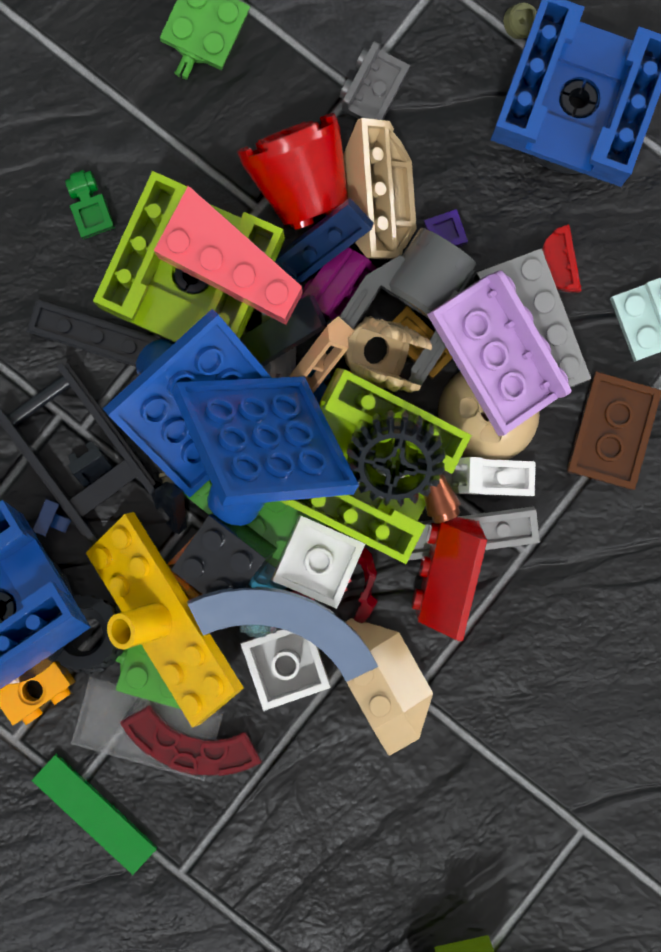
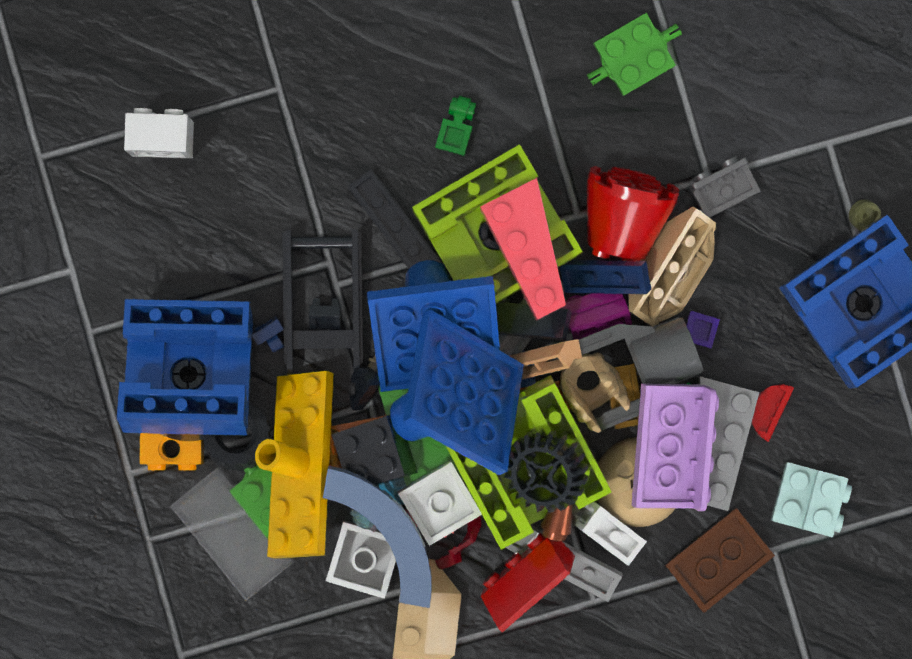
camera: 30 degrees right, 0 degrees up
(94, 814) = (150, 568): green tile -> none
(186, 752) = (249, 573): dark red tile -> none

